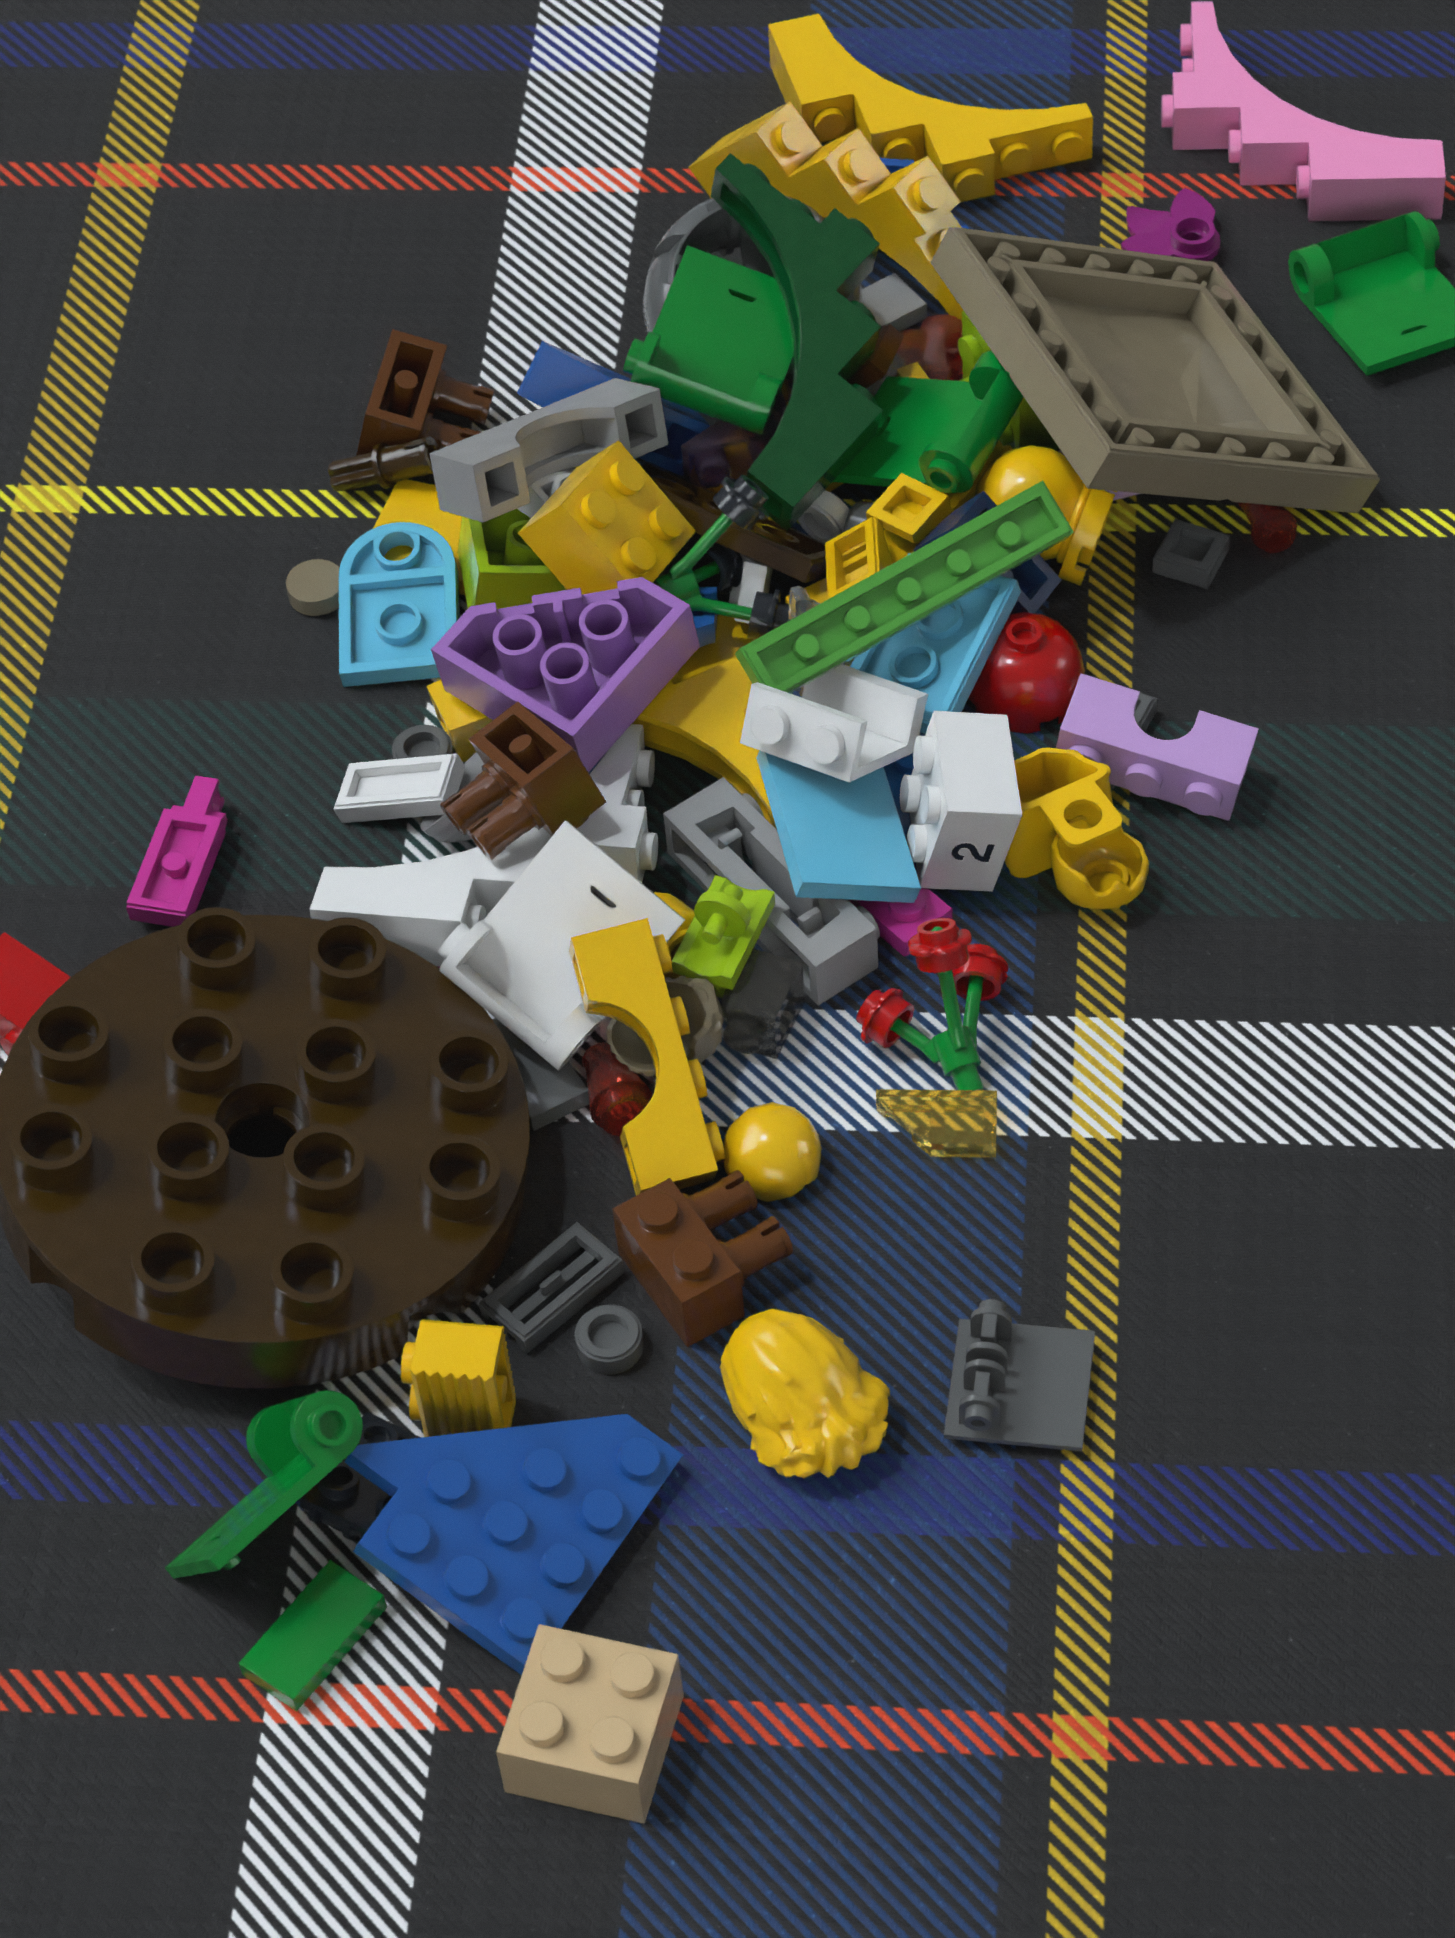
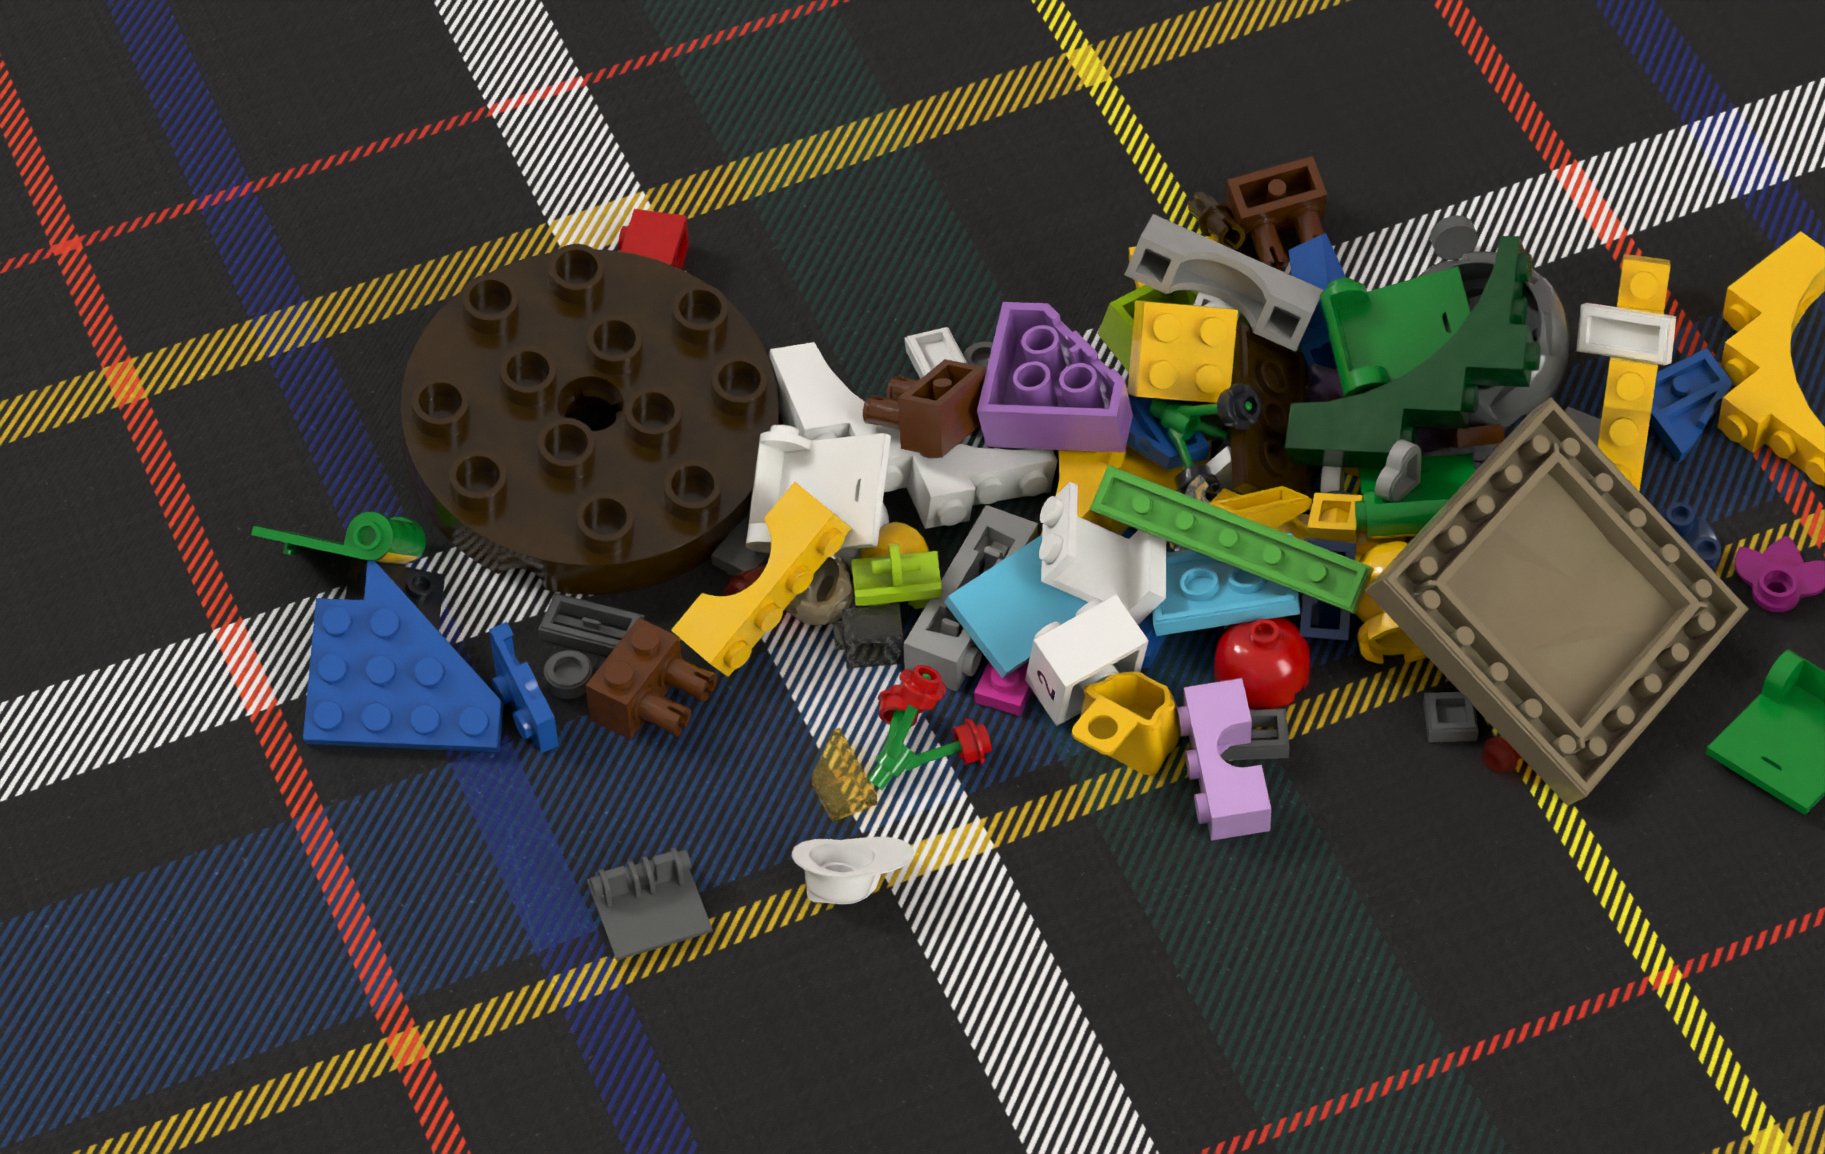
camera: 60 degrees right, 0 degrees up
(180, 857) = (817, 278): dark pink hinge -> none
(313, 1635) = (271, 623): green tile -> none
(314, 587) = (1094, 239): dark tan tile -> none
(395, 608) = (1086, 284): medium azure tile -> none
(459, 1378) = (468, 602): yellow brick -> none
(556, 289) = (1453, 237): none -> dark grey tile
(590, 1723) = (274, 782): tan brick -> none
(633, 1383) = (519, 688): none -> blue wing
(773, 1150) = (759, 694): yellow hair -> none
(802, 1395) = (568, 786): yellow piece -> none
(860, 165) = (1626, 333): none -> white tile
(901, 423) = (1400, 473): none -> light grey tile
(1098, 1144) = (849, 867): none -> white piece
(1102, 872) = (1101, 778): yellow hair -> none

